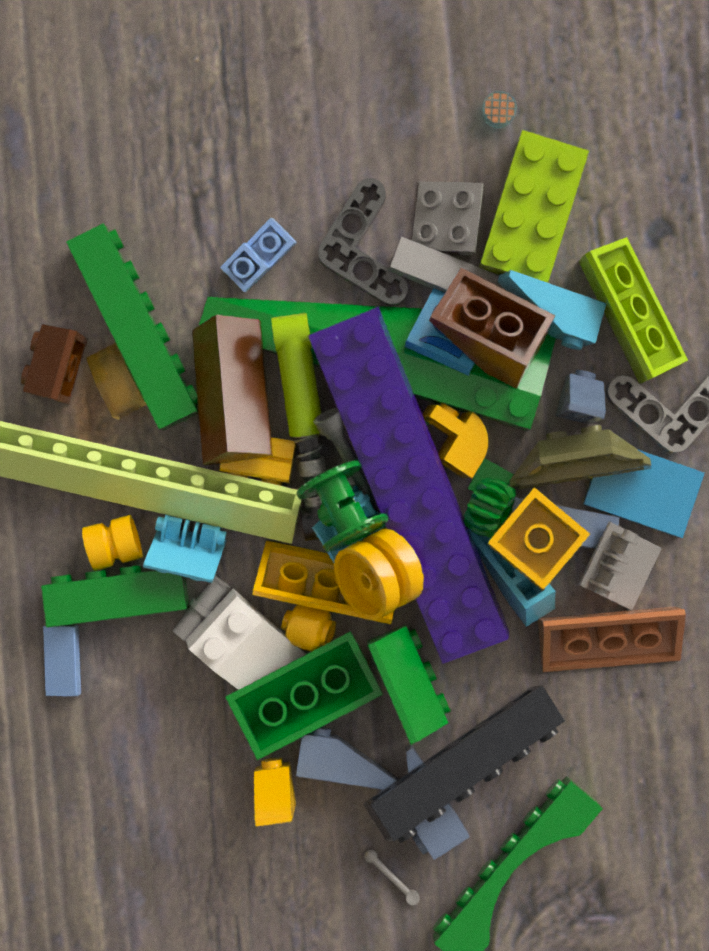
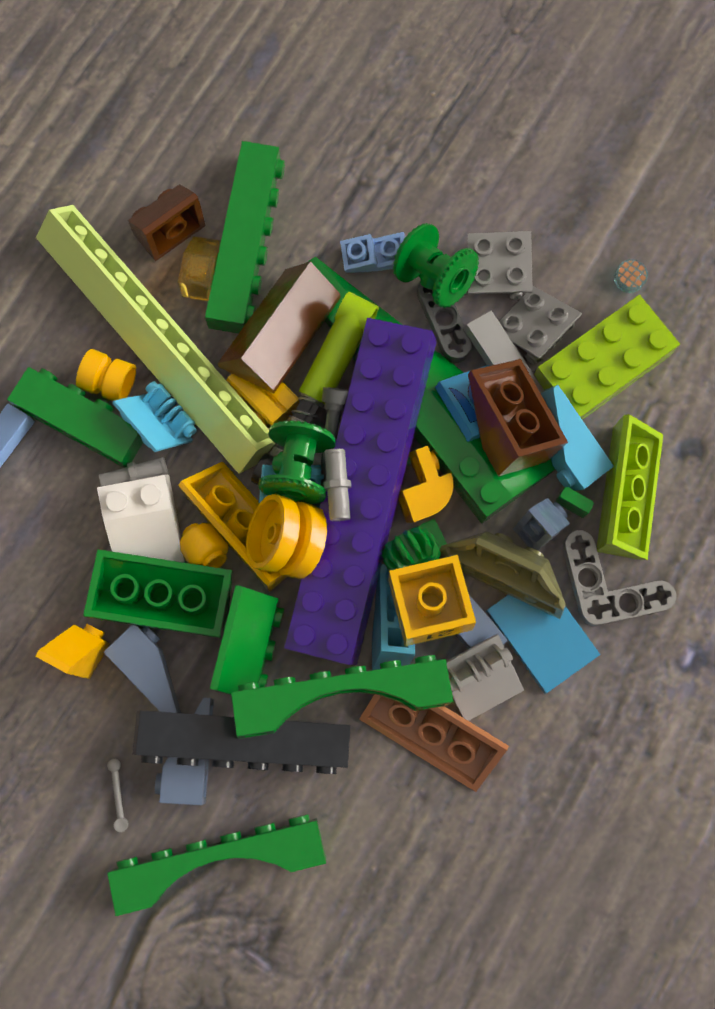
camera: 30 degrees right, 10 degrees down
(326, 237) = (443, 274): none -> green hose
(377, 186) = (503, 263): none -> light grey hinge
(391, 501) = (337, 485): none -> light grey pin
(471, 727) = (414, 685): none -> green arch
(593, 356) = (574, 502): none -> green tile

